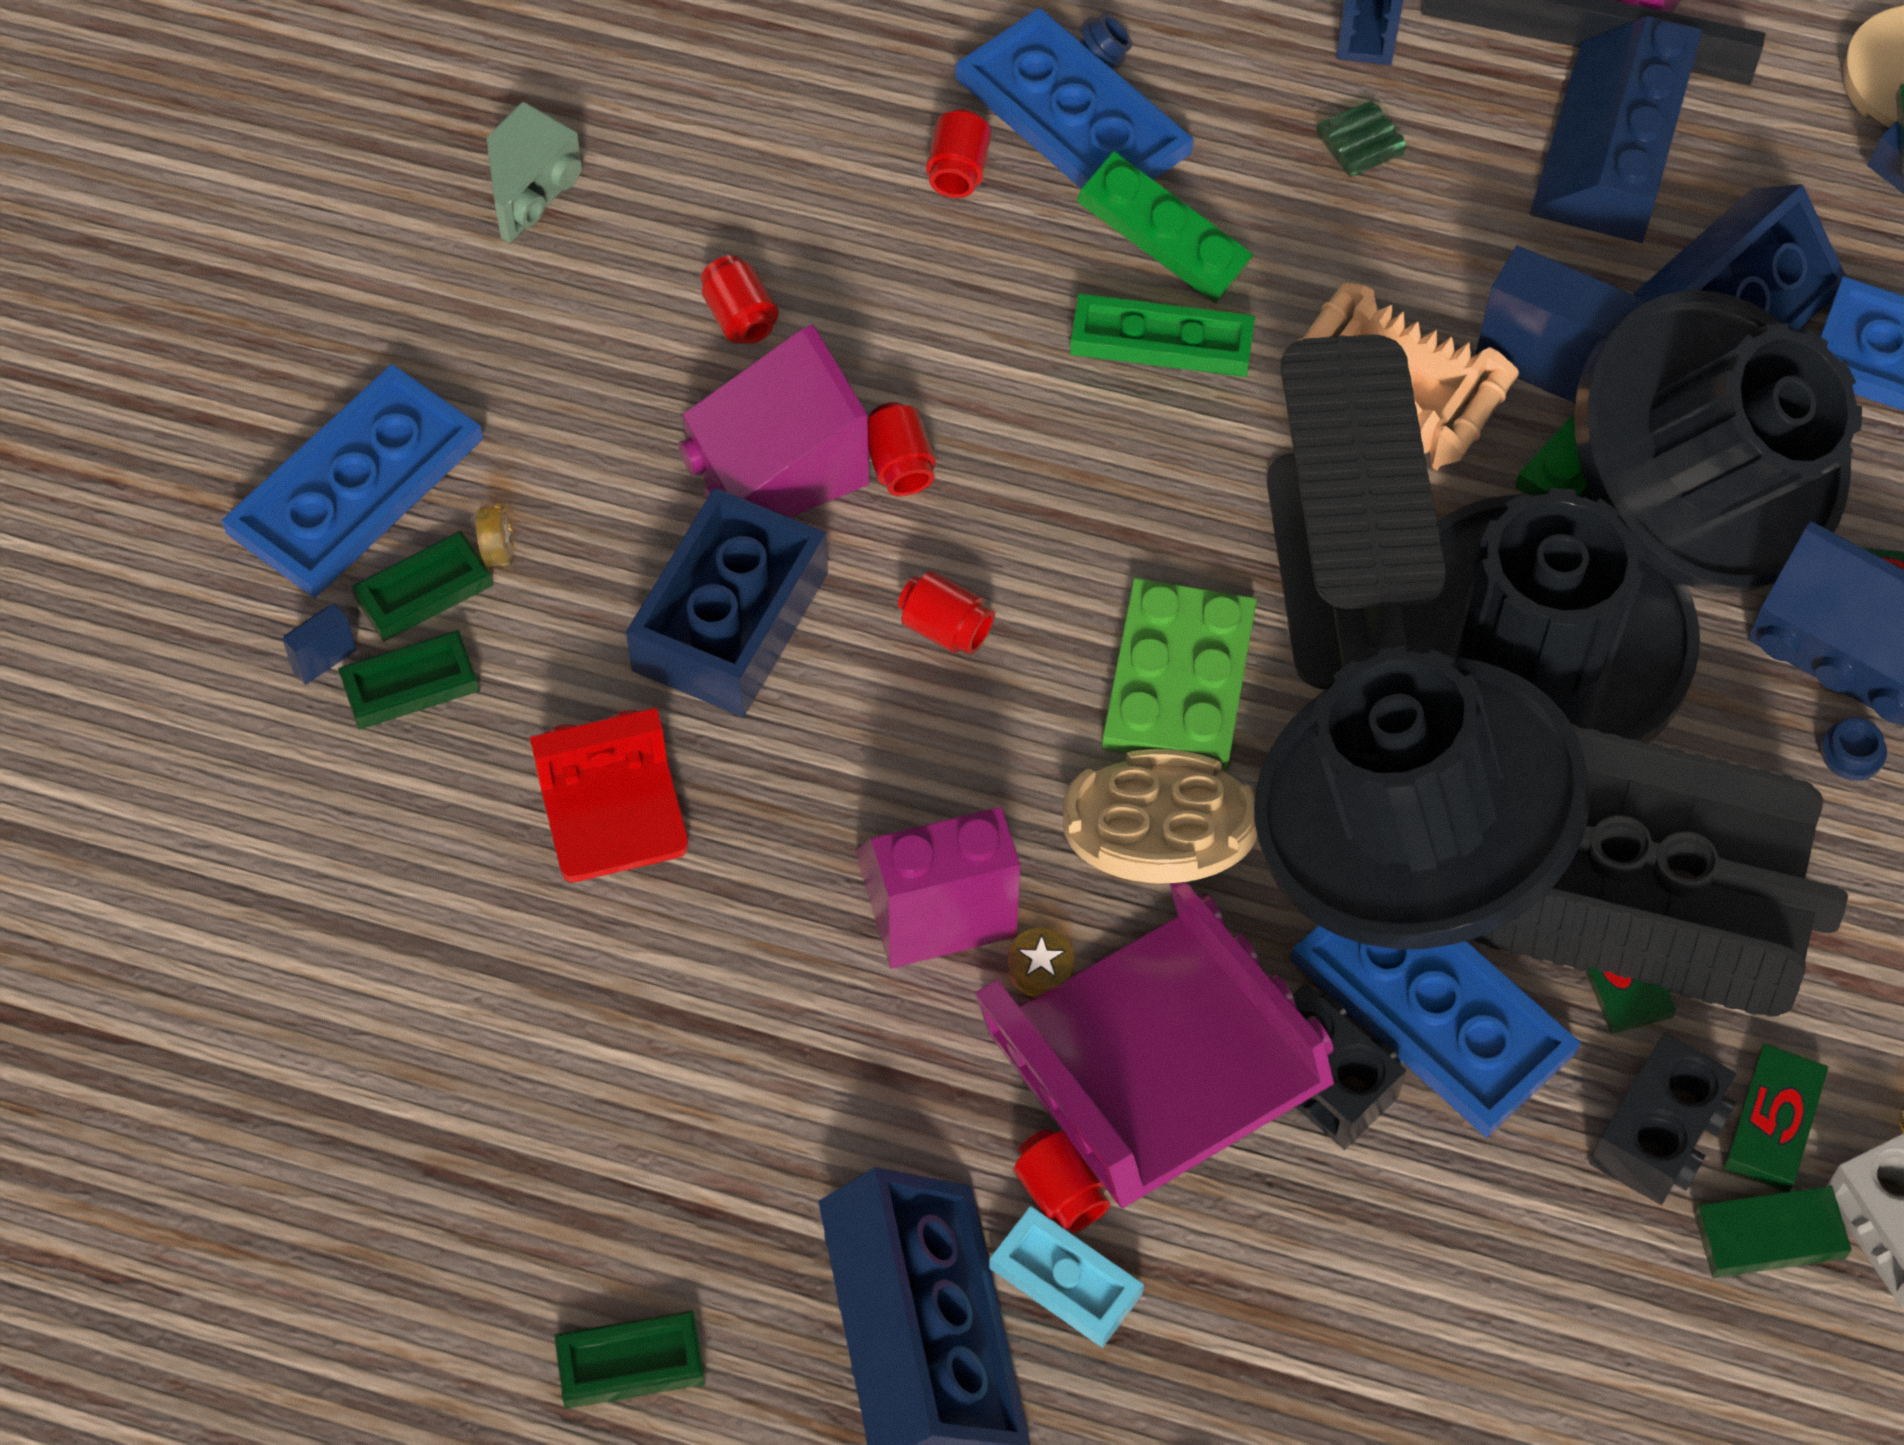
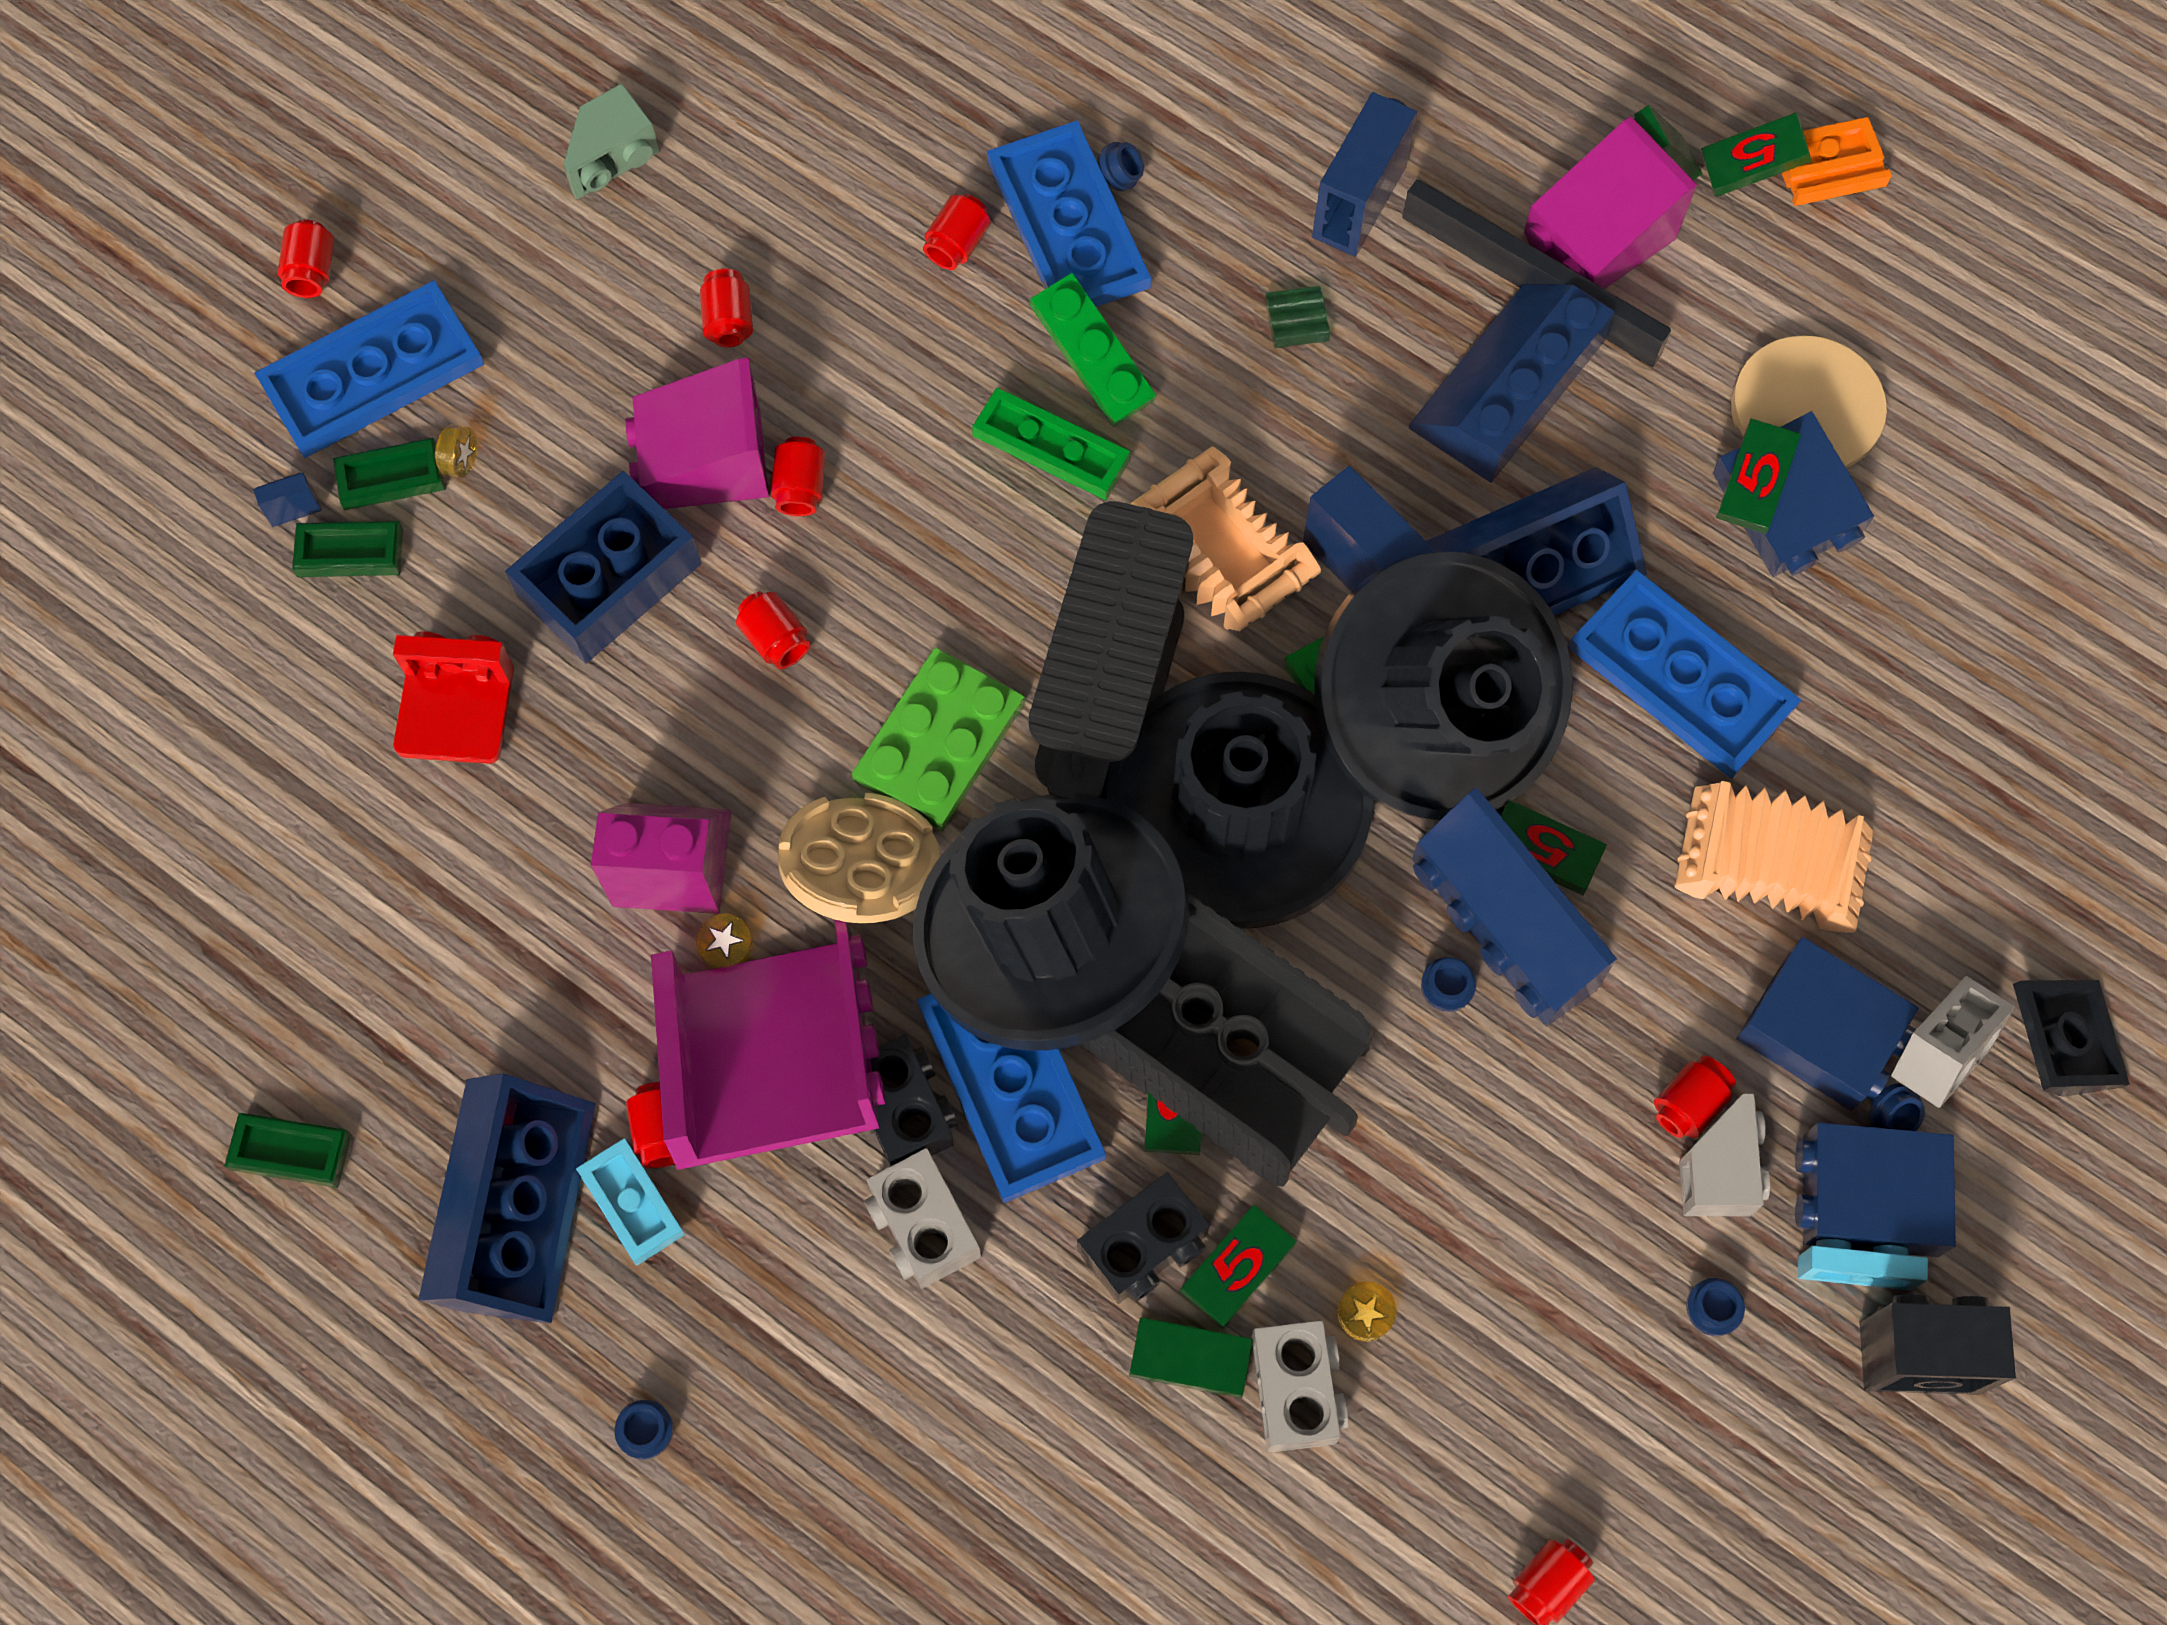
camera: 20 degrees right, 10 degrees up
(228, 385) = (305, 258): none -> red brick
(1423, 1169) = (931, 1215): none -> light grey brick

